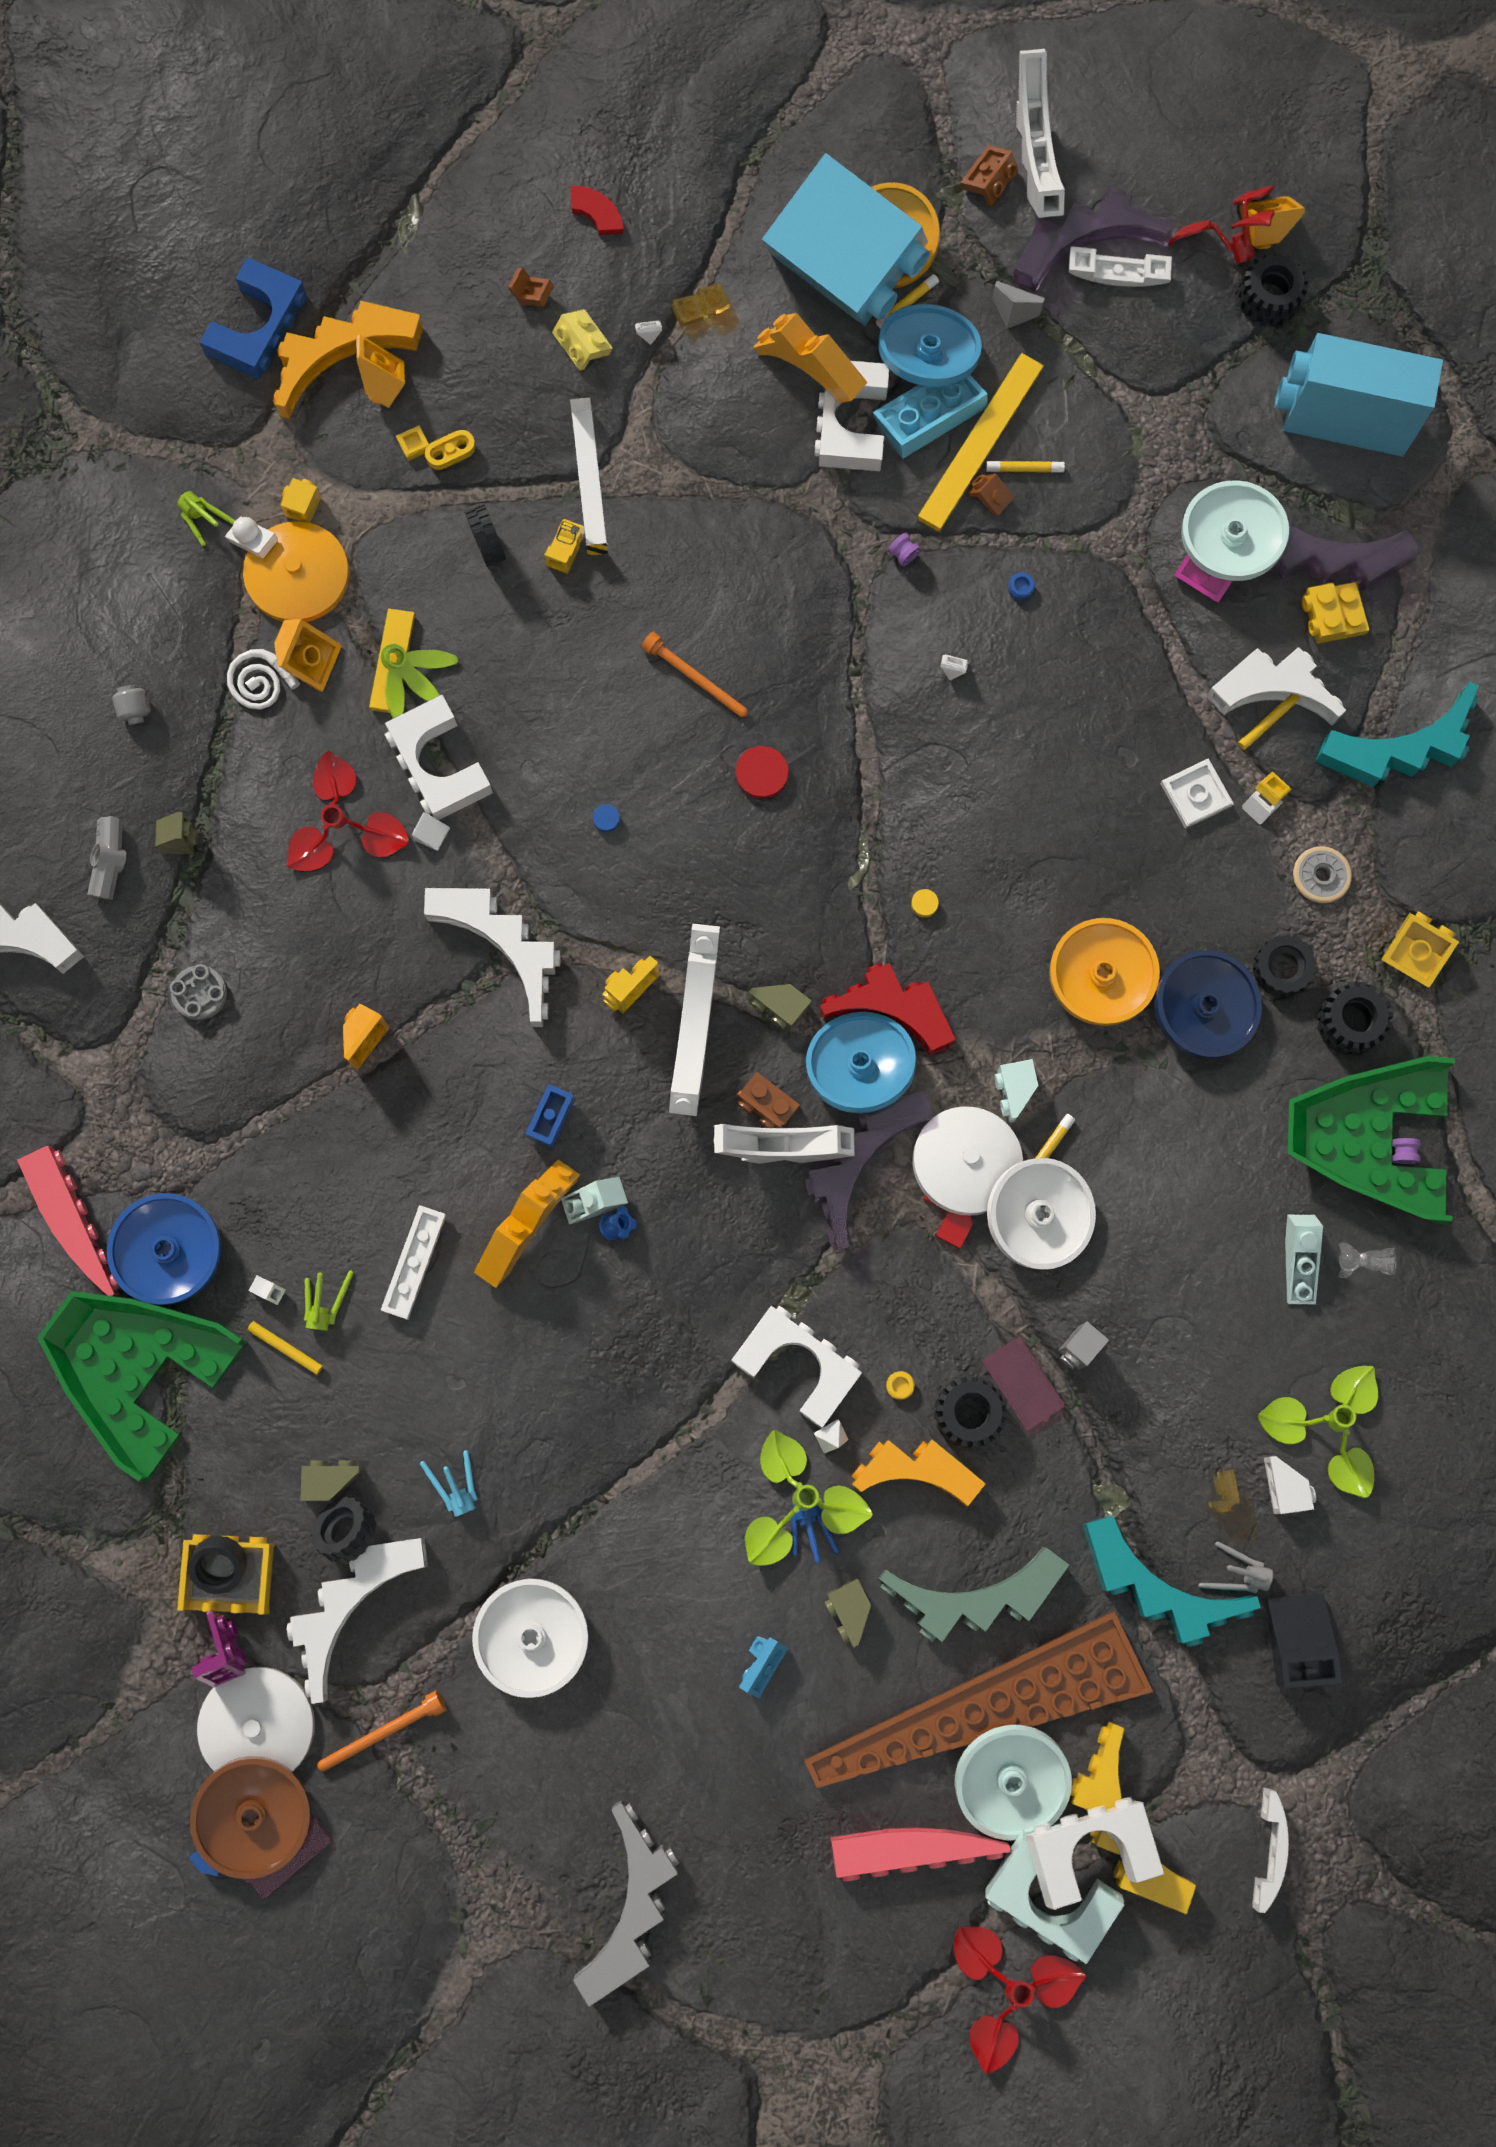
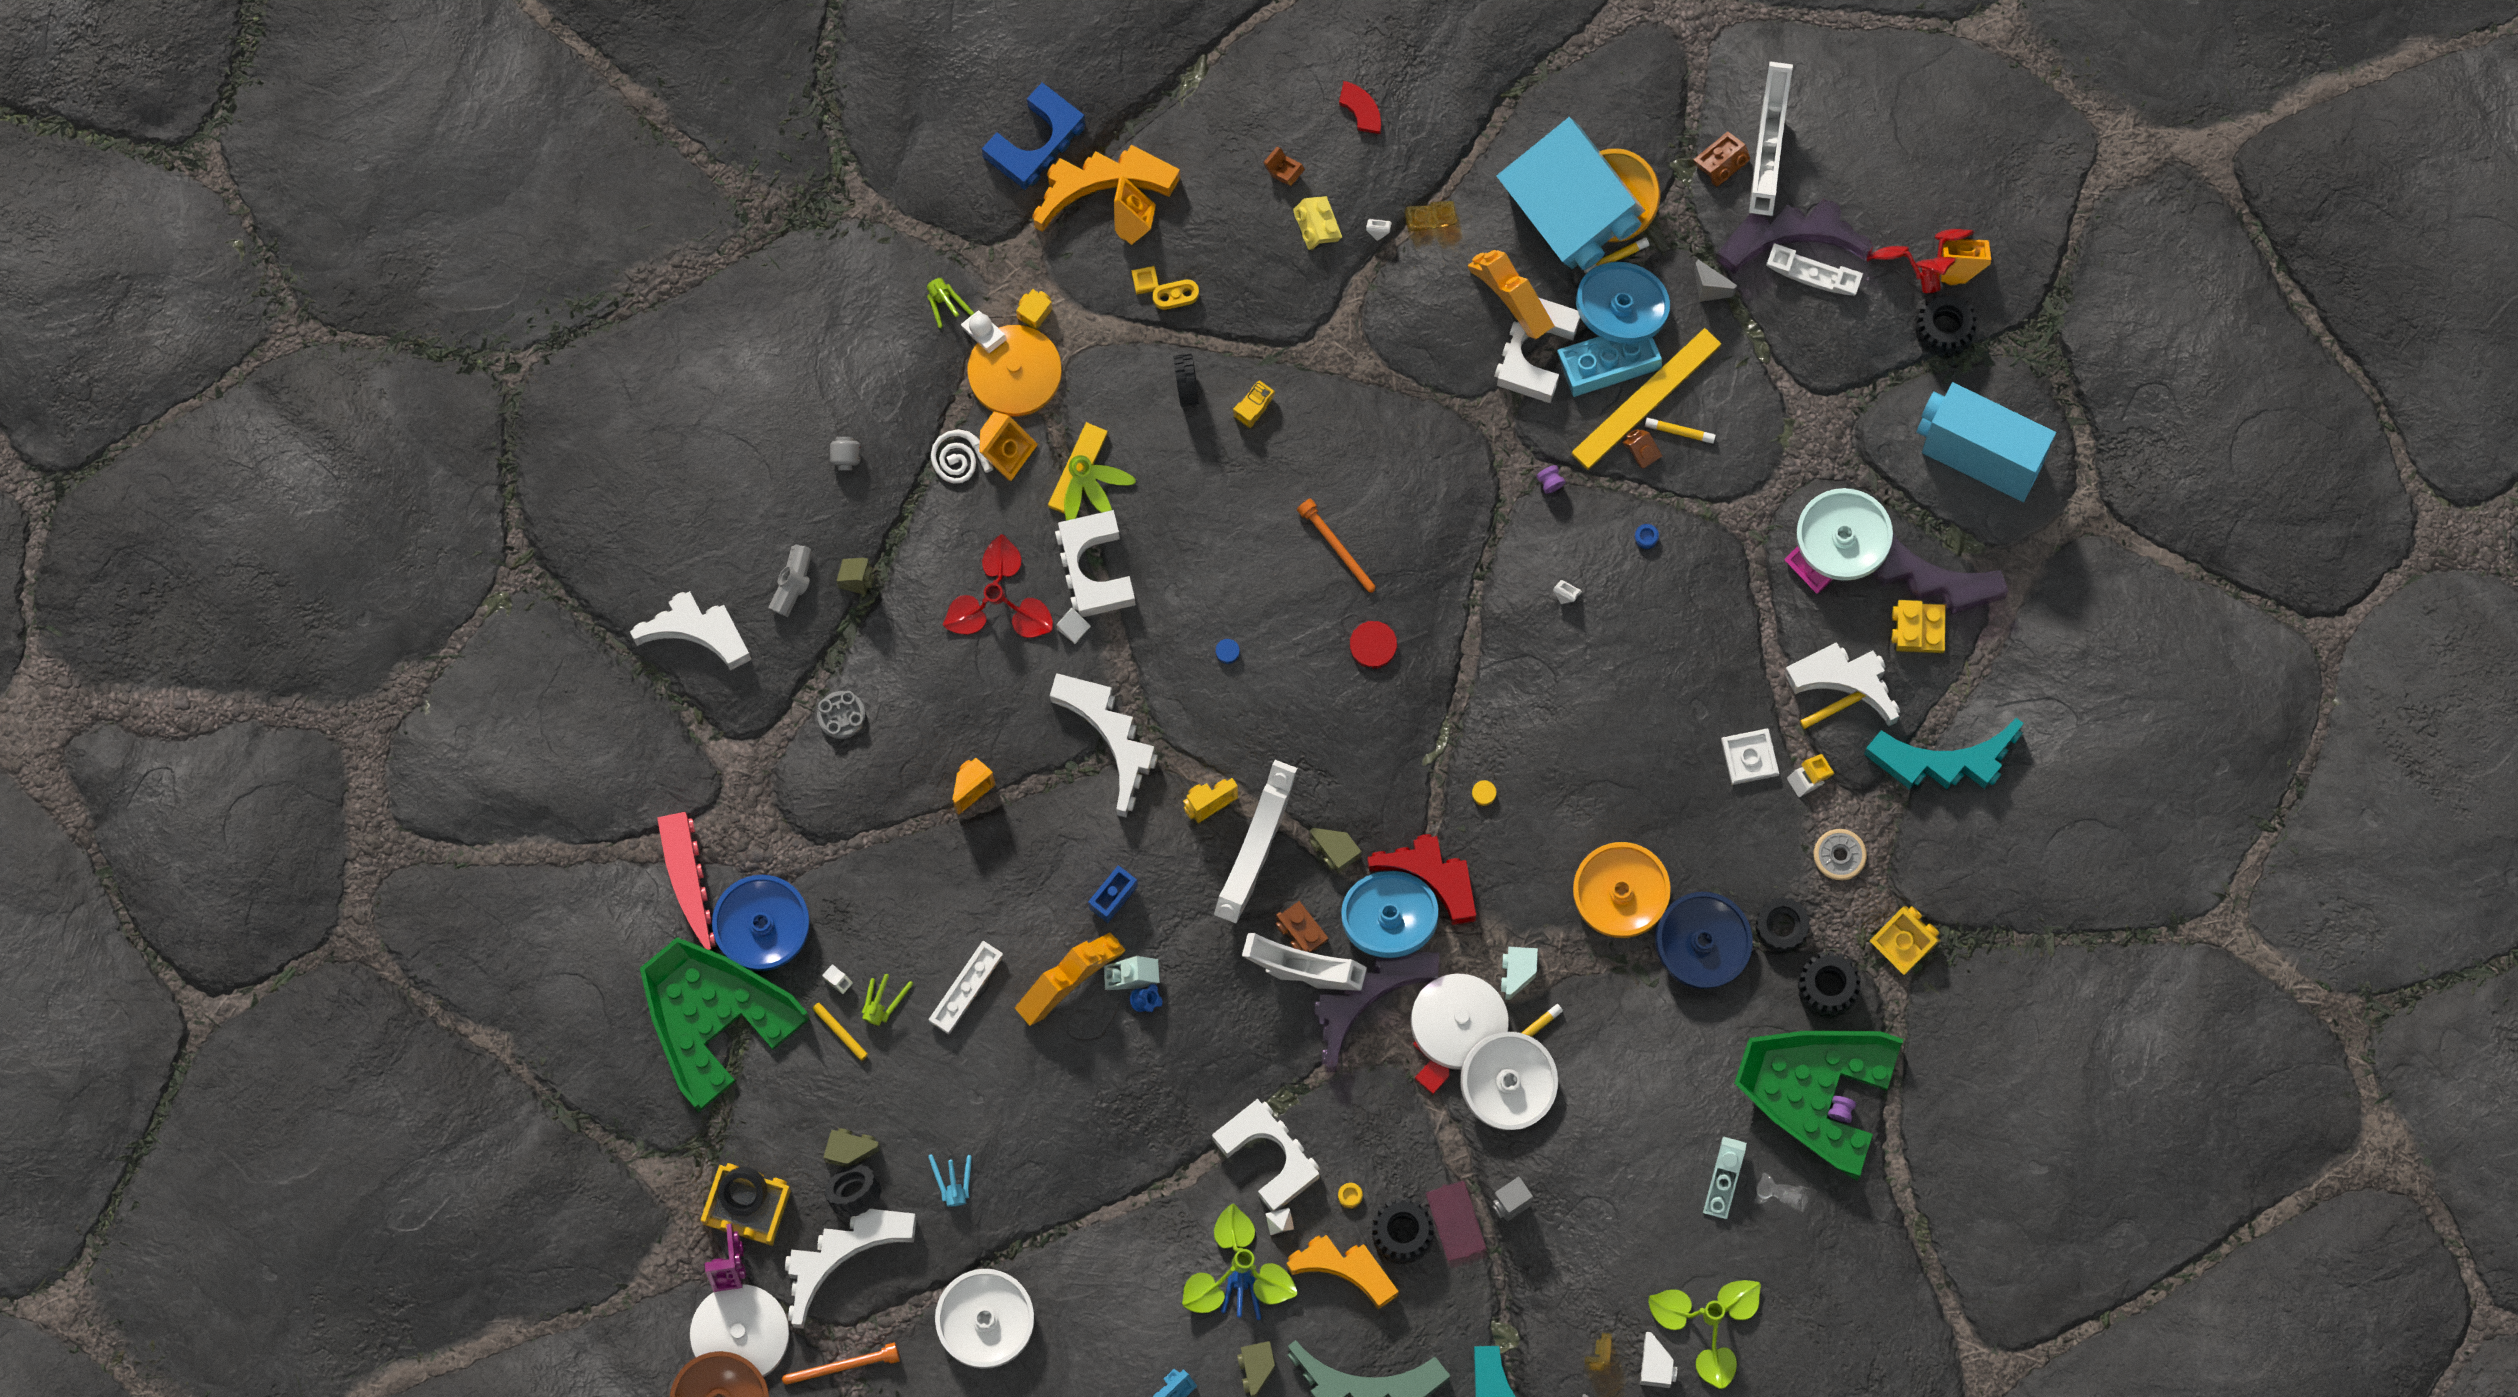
camera: 20 degrees right, 5 degrees down
(588, 476) = (1291, 348): white sticker -> none

